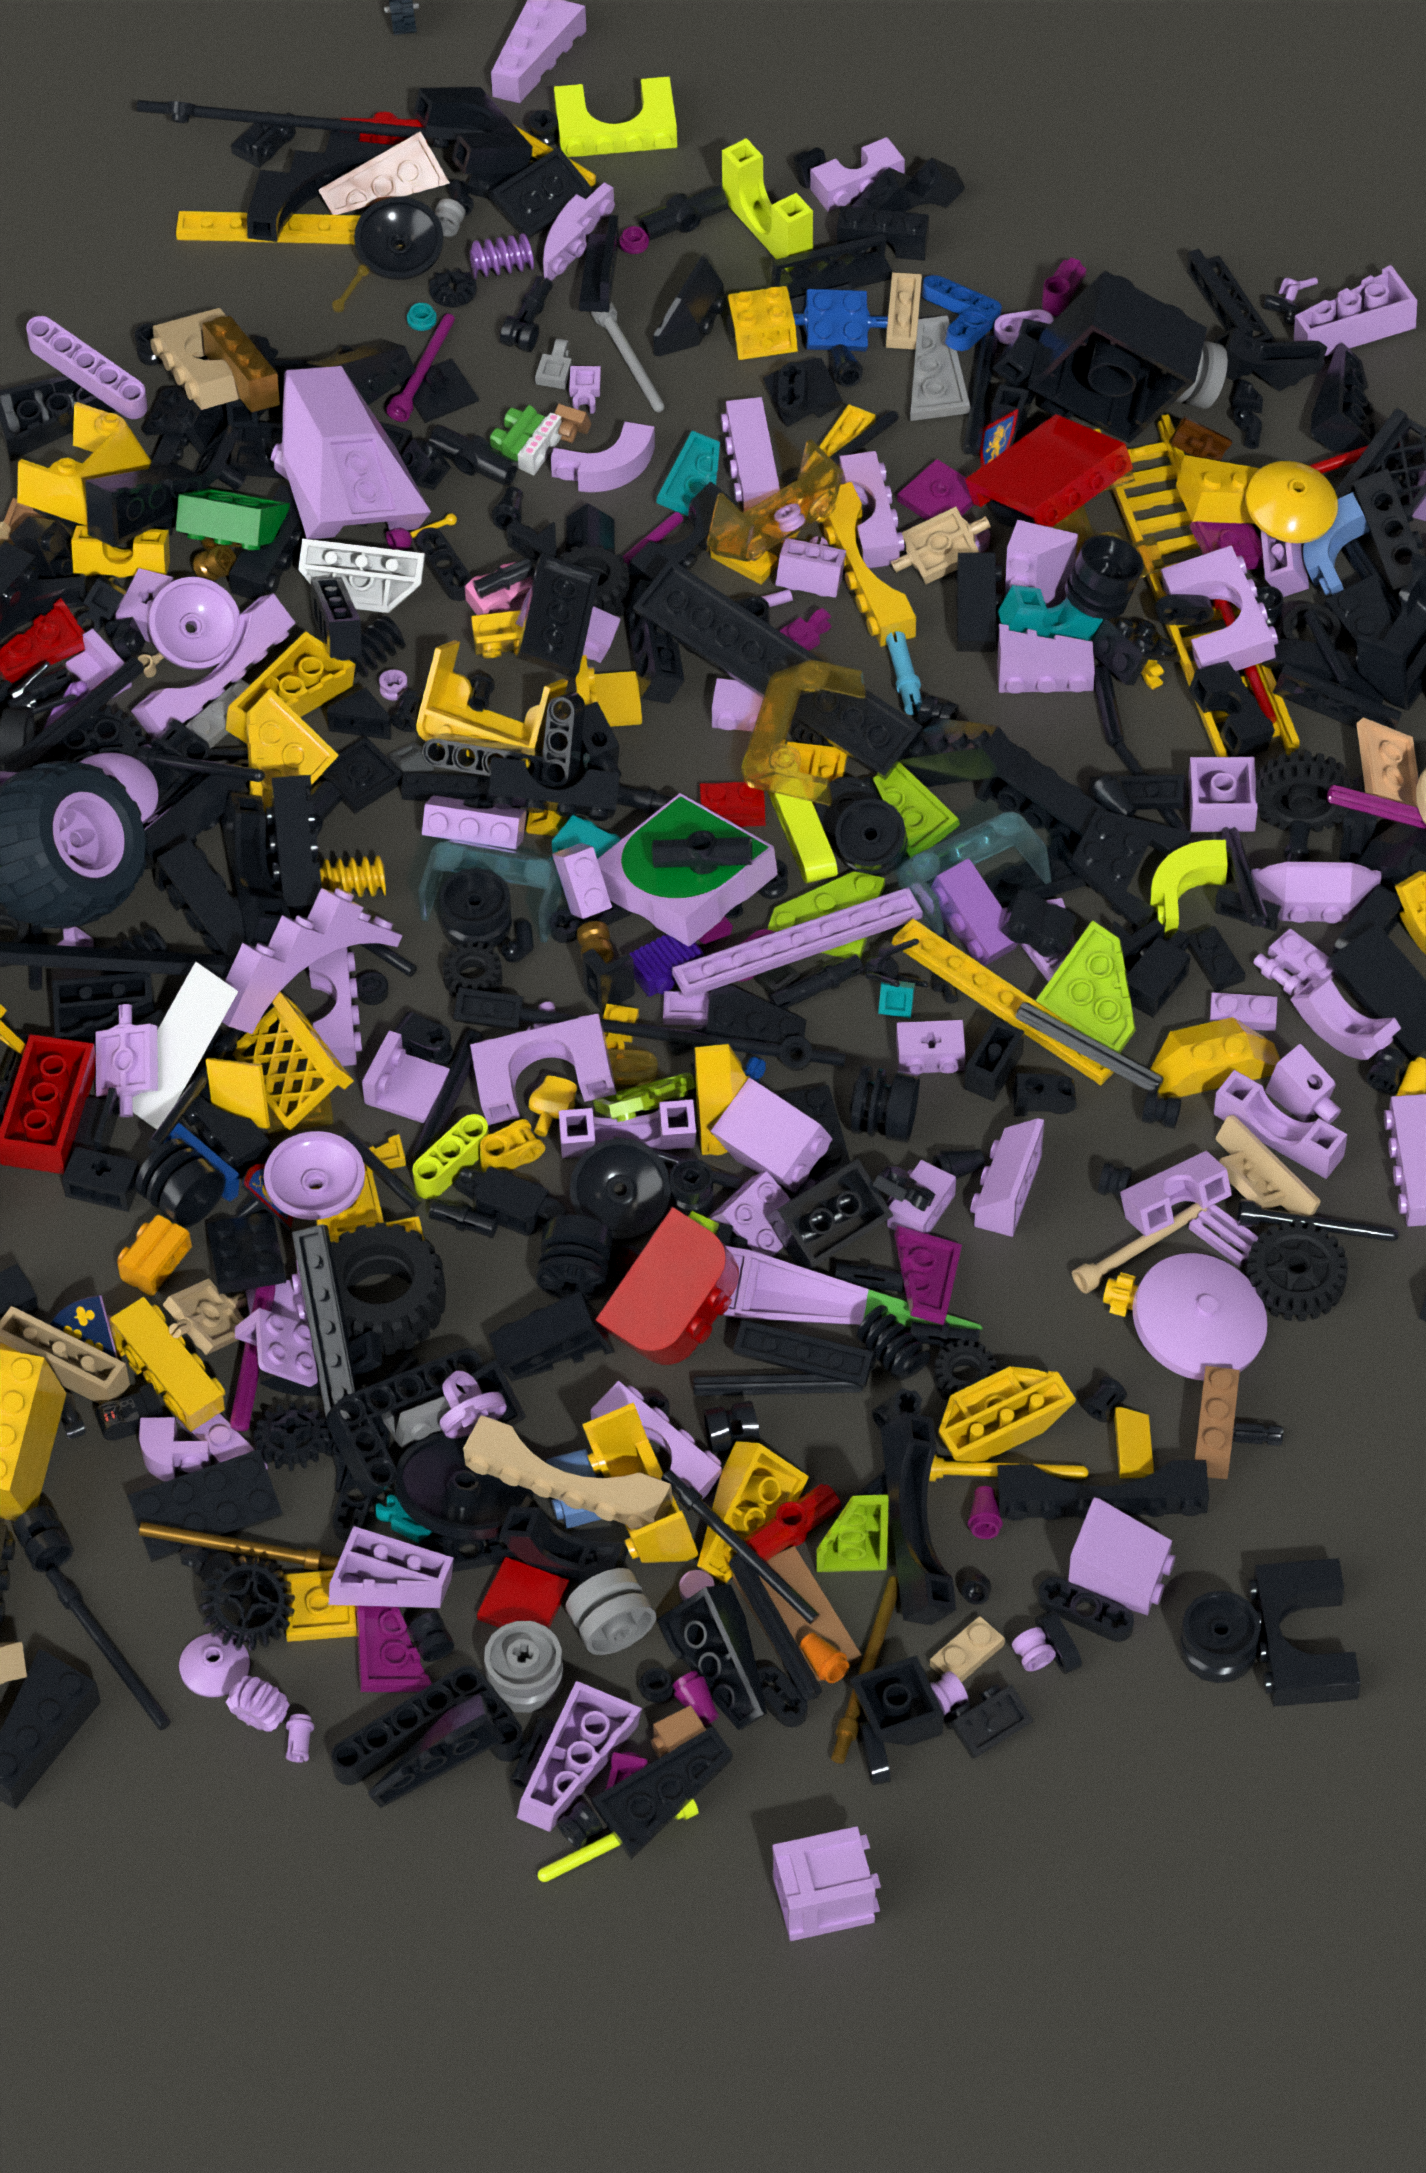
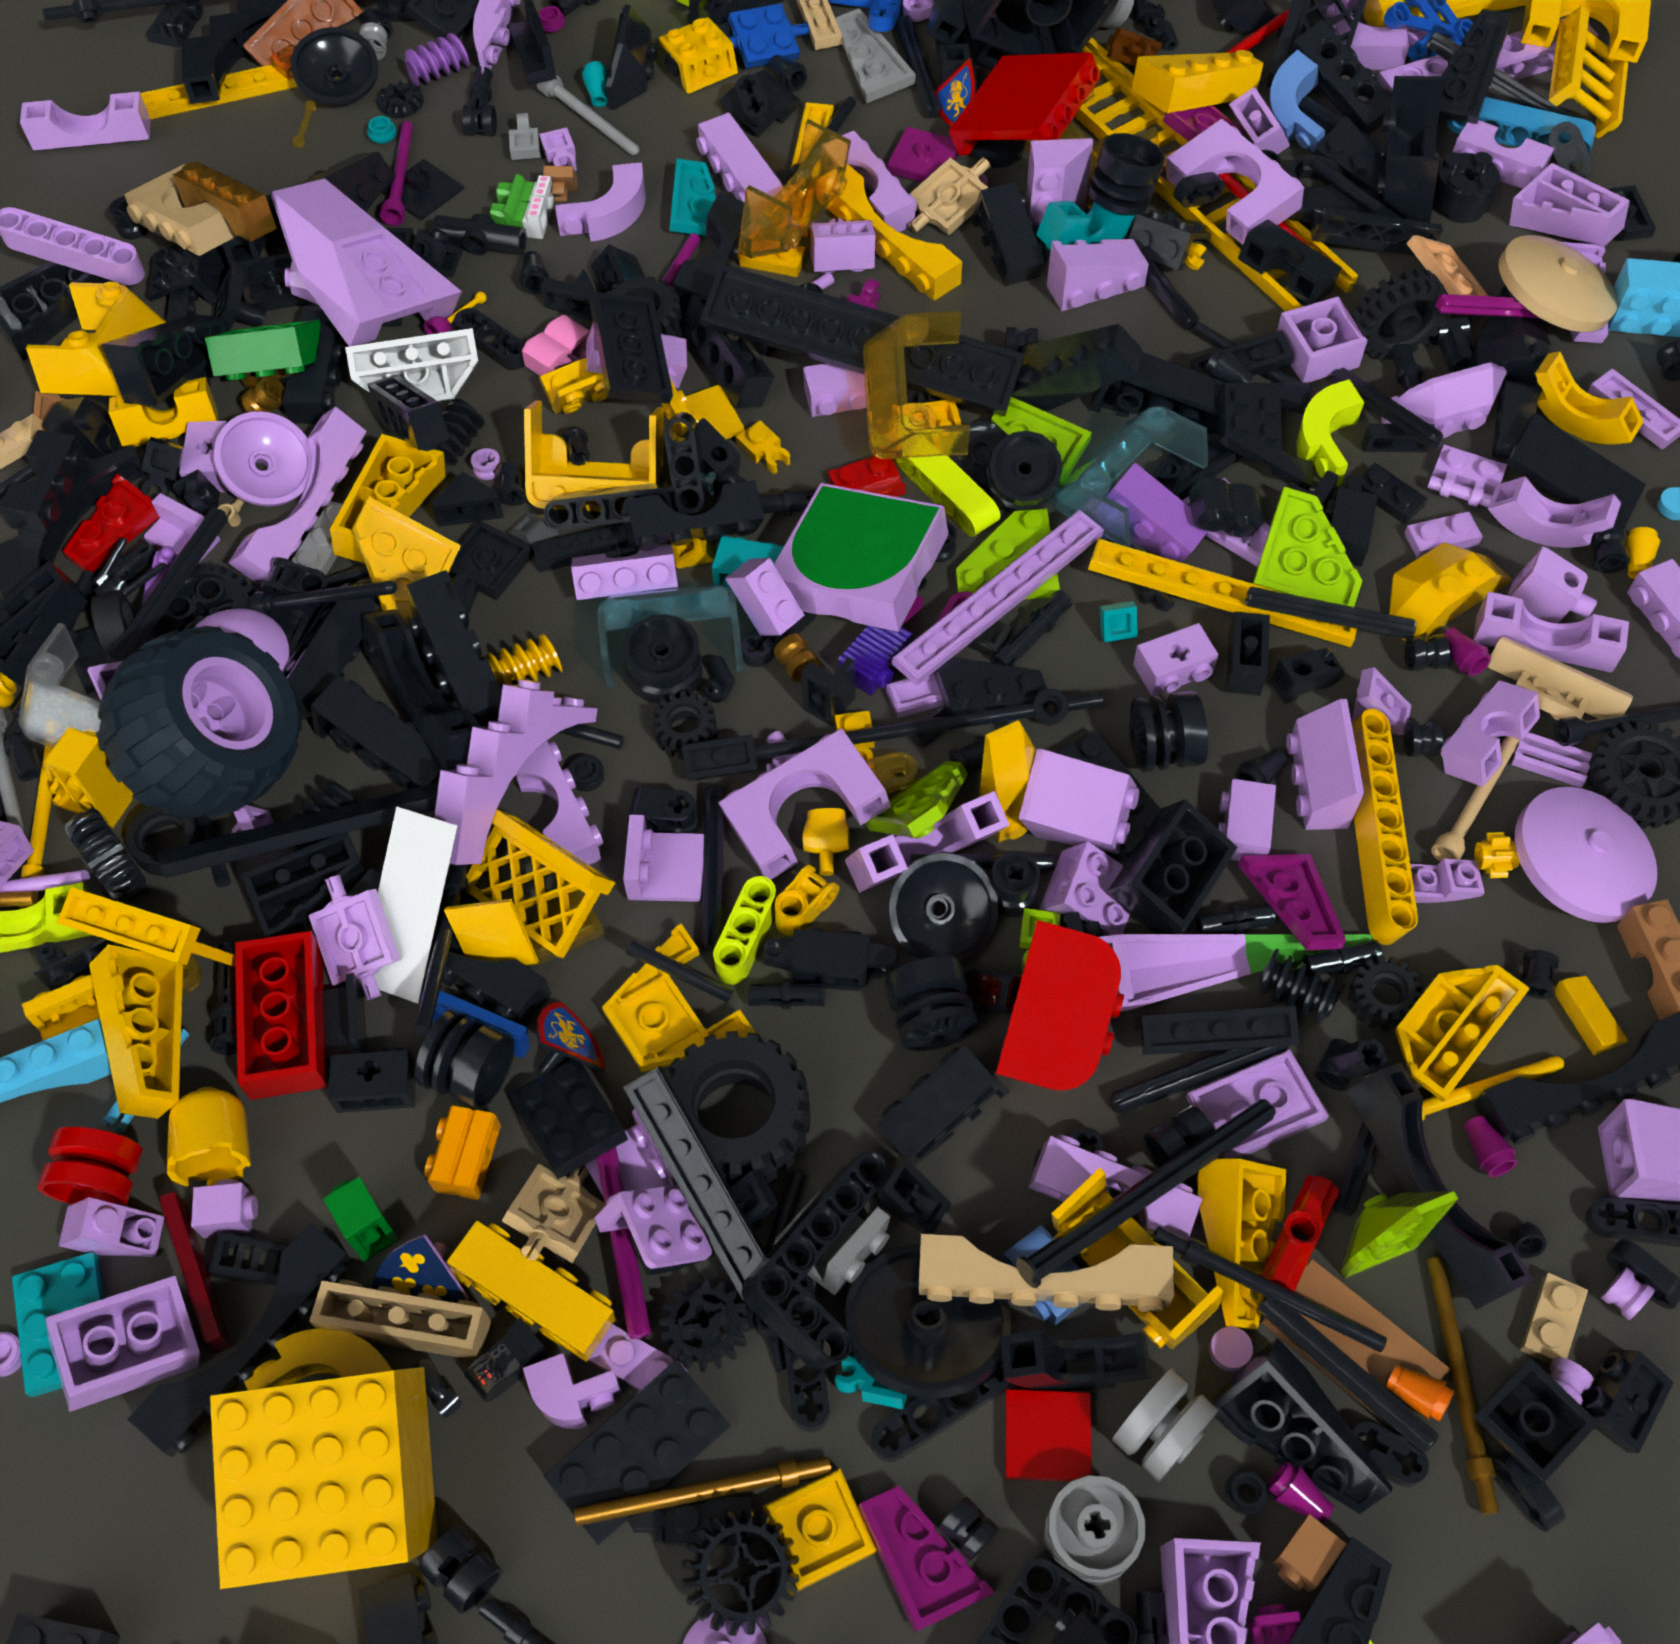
camera: 20 degrees left, 5 degrees up
(56, 1273) = (360, 1218): none -> green brick
(108, 227) = (52, 127): none -> lavender arch
(313, 1161) = (610, 984): lavender dish -> none
(351, 215) = (282, 60): none -> clear orange plate
(389, 1573) = (894, 1472): lavender wedge -> none
(469, 1406) = (897, 1226): lavender tile -> none
(504, 578) = (558, 331): black axle -> none
(648, 321) = (595, 79): none -> teal cone
(652, 739) = (762, 444): none -> yellow plate
(676, 1442) = (1143, 1193): none -> black axle
(702, 852) = (881, 531): black piece -> none
(789, 517) = (808, 203): lavender bush -> none
(813, 1424) = (1273, 1079): none -> lavender tile
(886, 969) = (1095, 596): black plant -> none
(899, 1185) = (1233, 813): black plate -> none
(907, 682) = (977, 323): medium azure pin -> none
(1025, 1248) = (1382, 833): none -> yellow beam
(1060, 1303) = (1447, 881): none -> lavender slope
(1092, 1138) = (1379, 694): none -> lavender slope
(1199, 1122) = (1467, 653): none -> magenta cone
(1288, 513) = (1252, 70): yellow dish -> none

